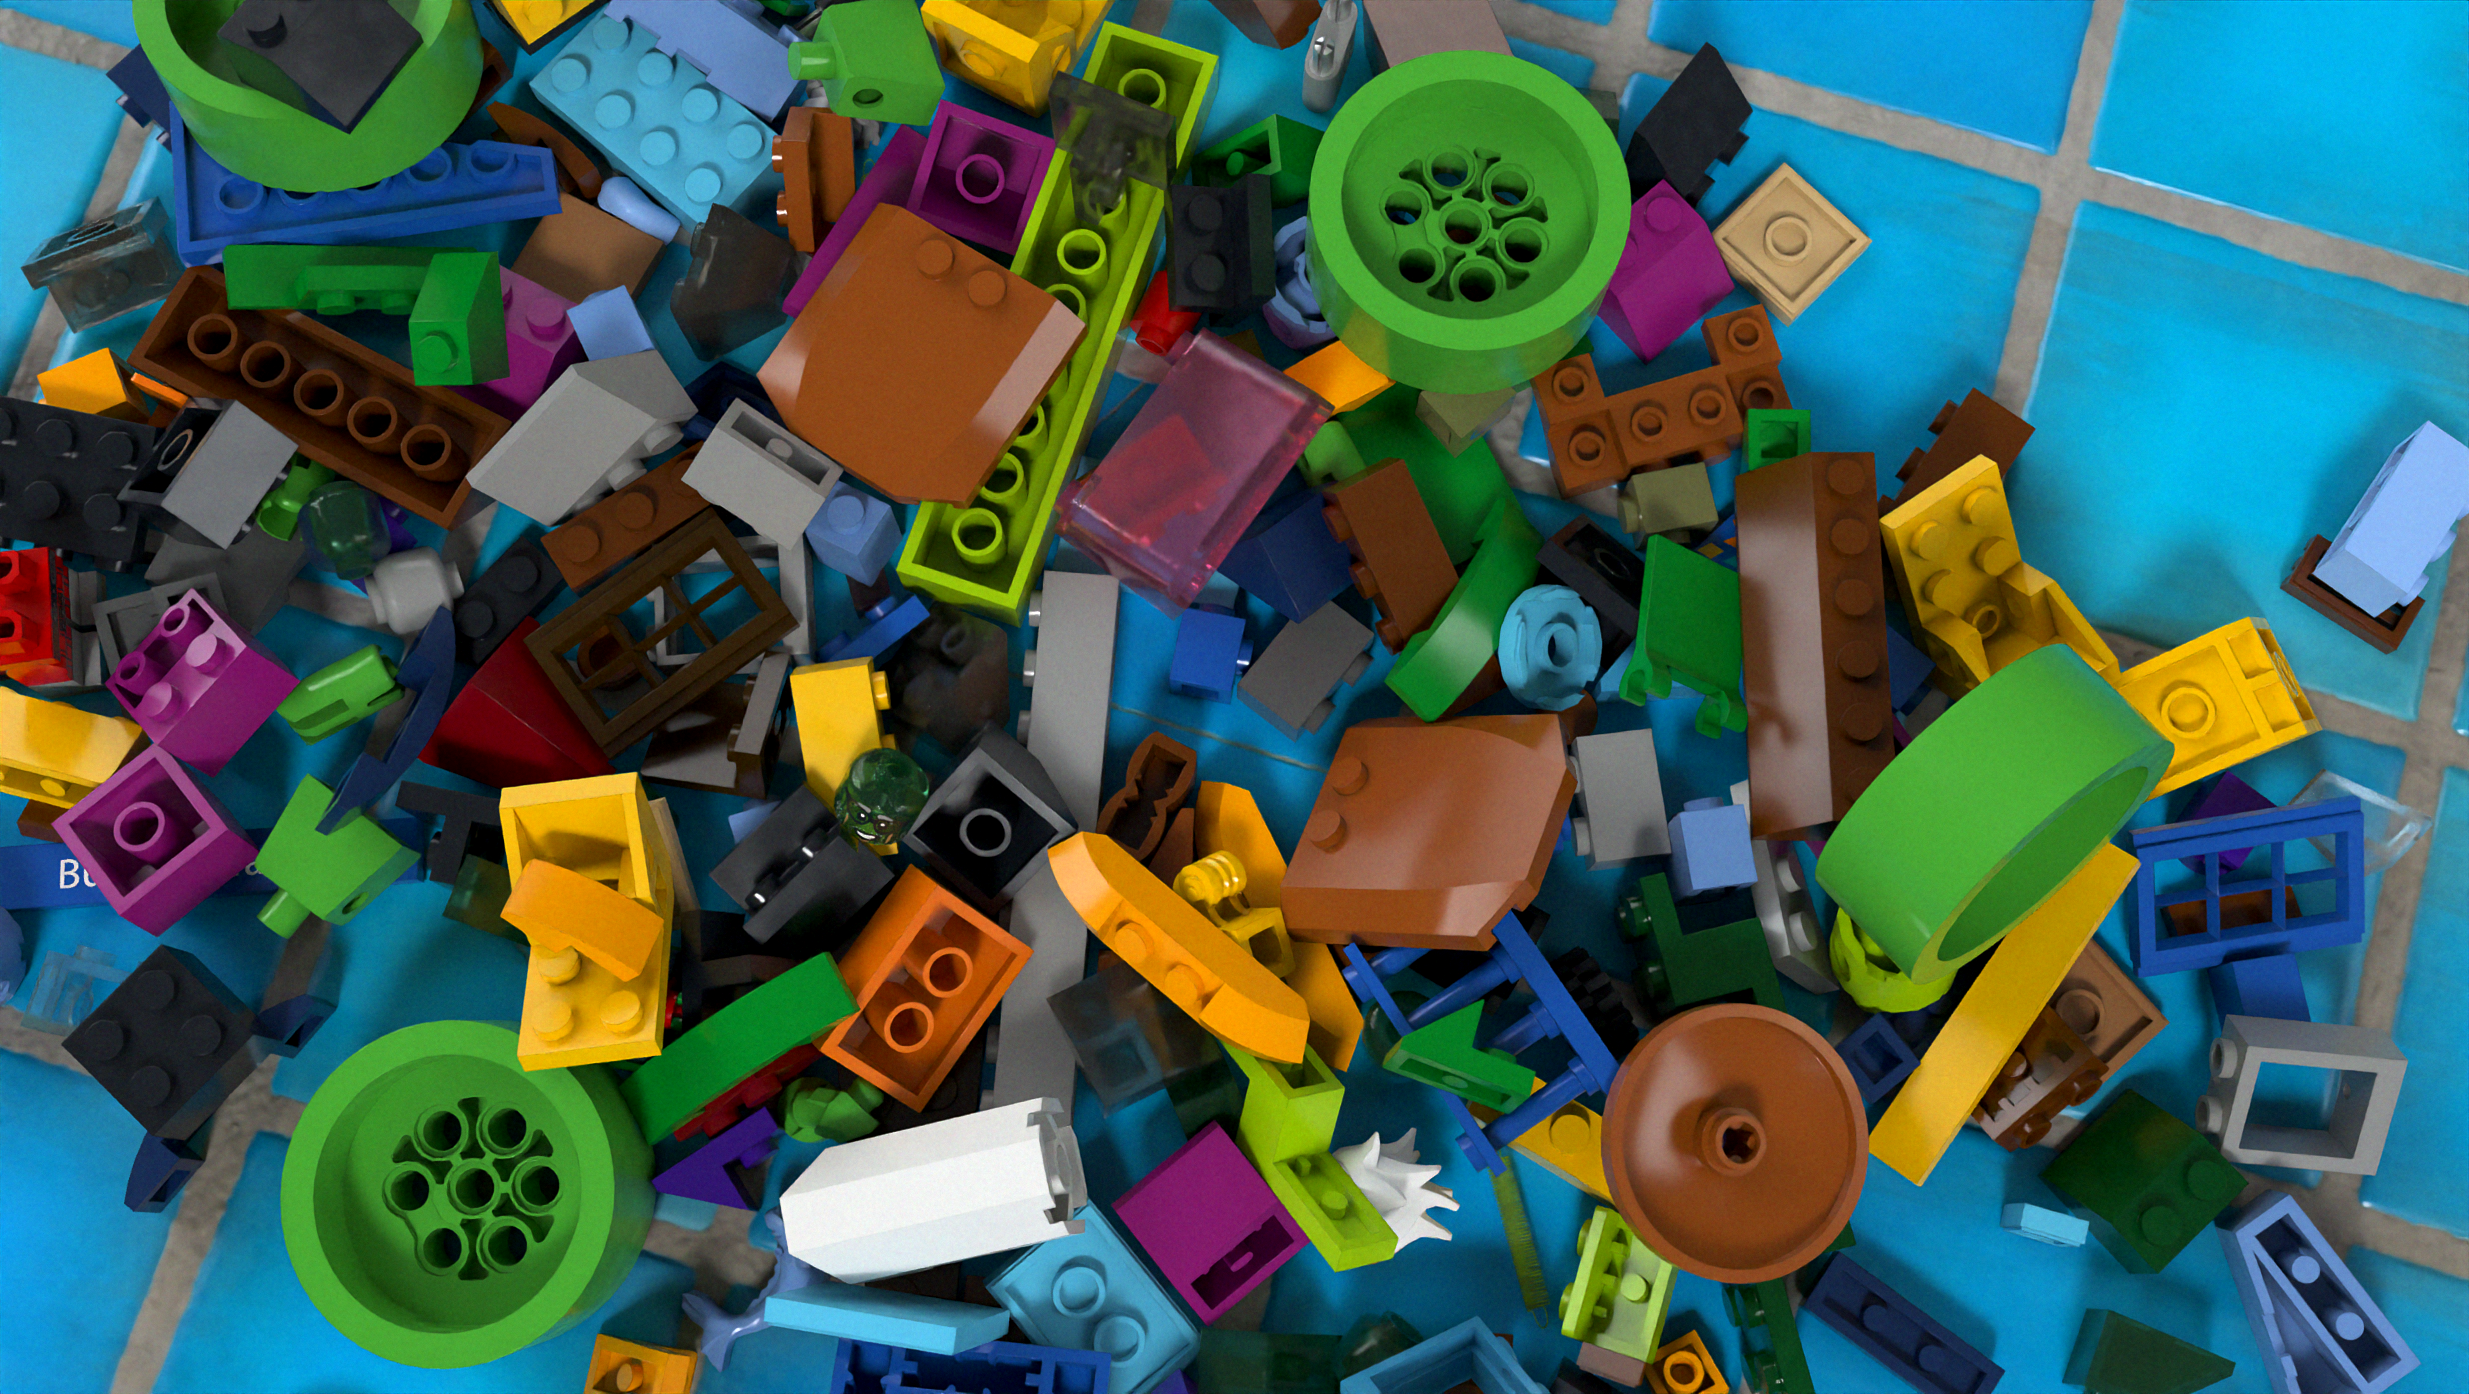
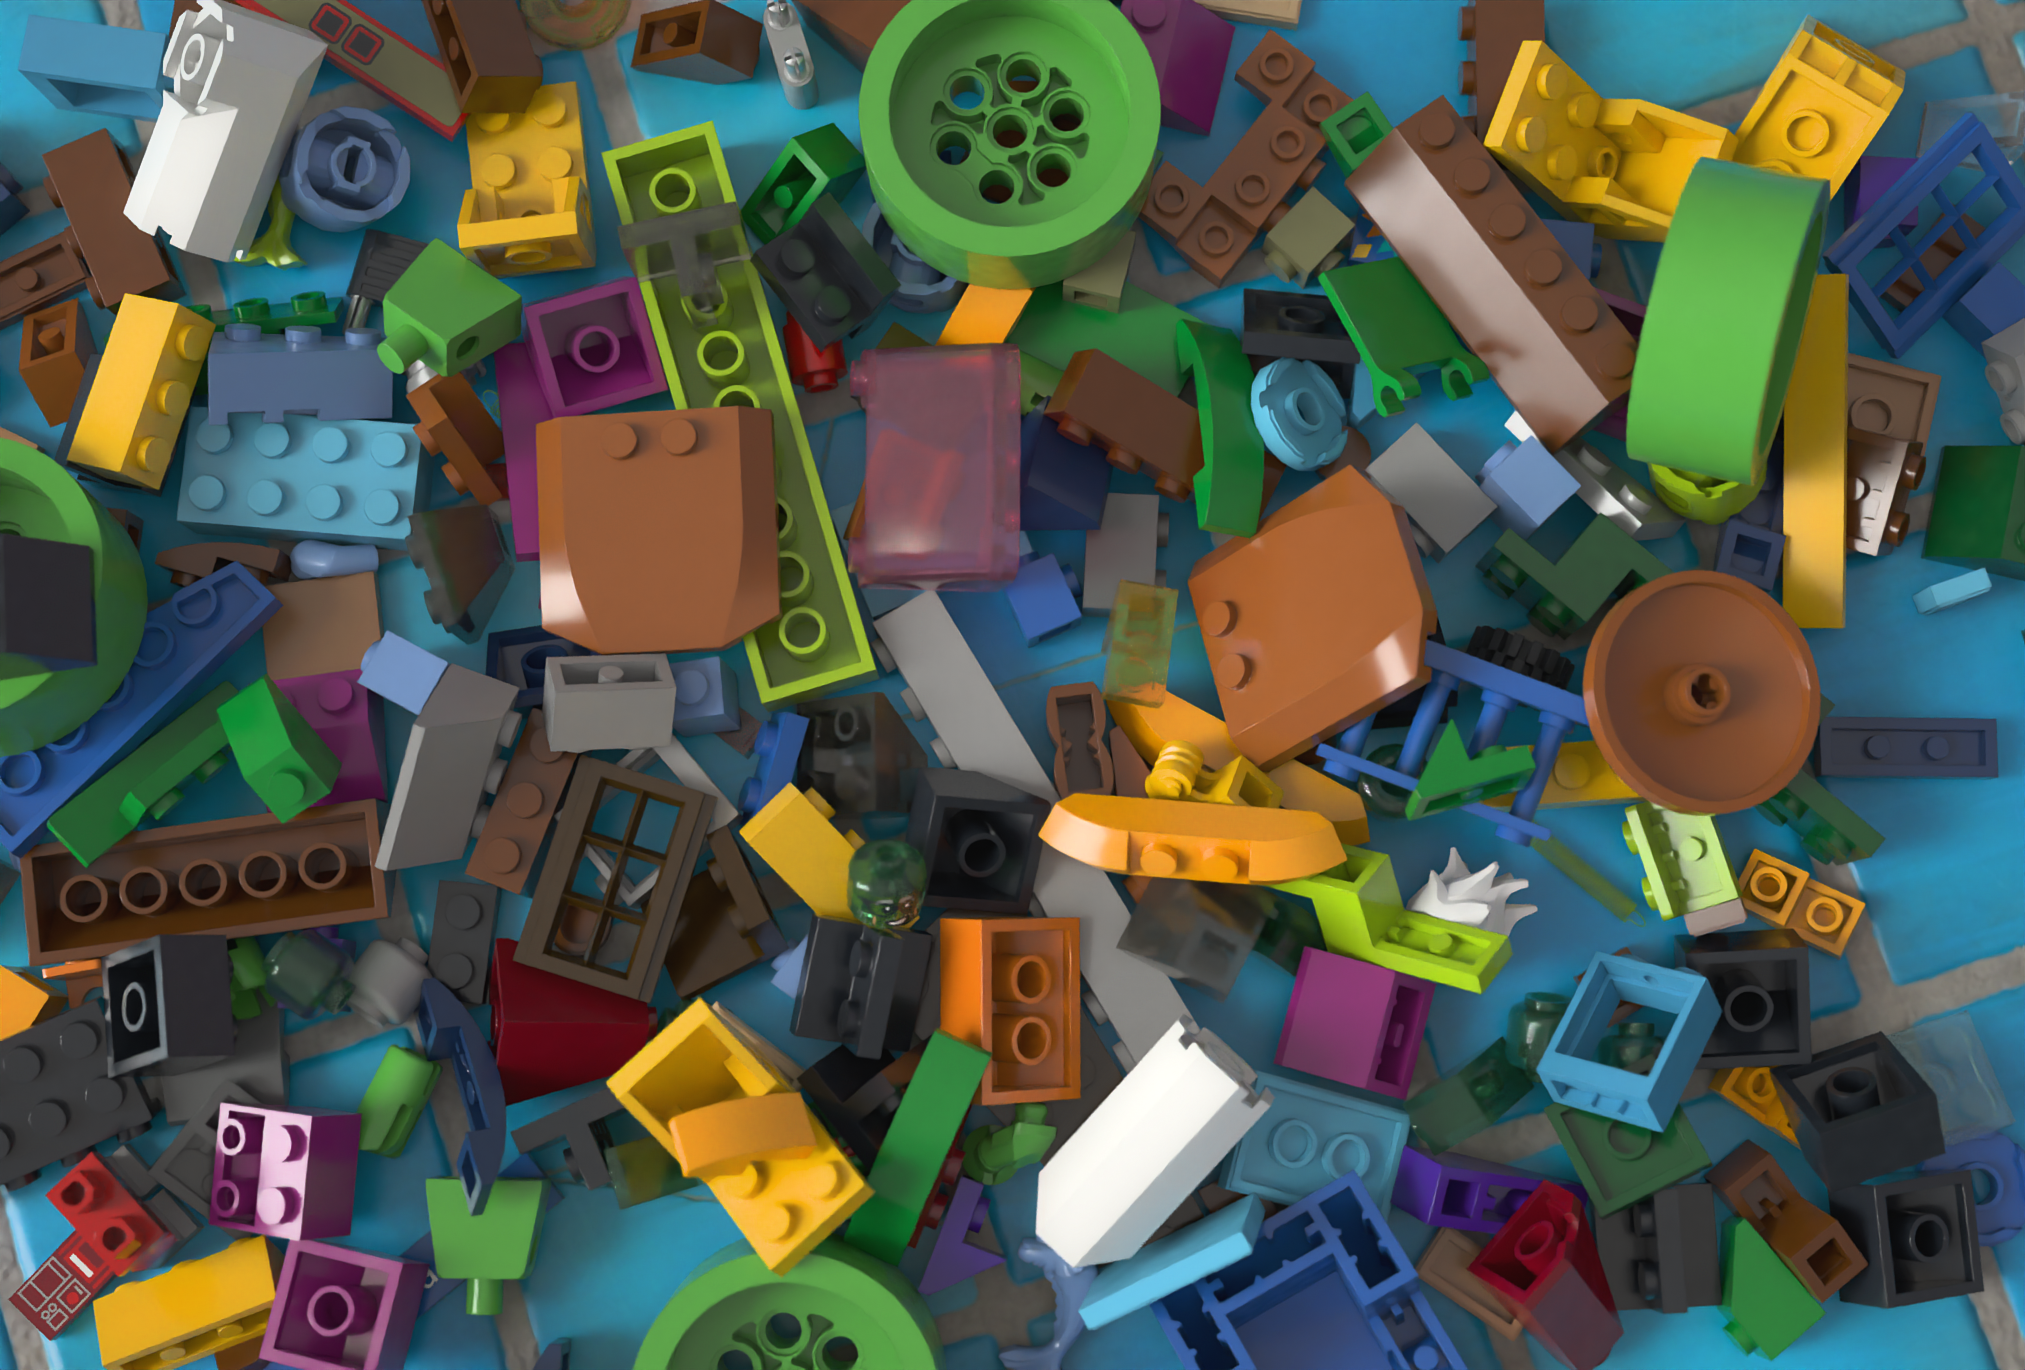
camera: 30 degrees left, 5 degrees up
(1261, 748) = (1139, 644): none -> clear yellow slope

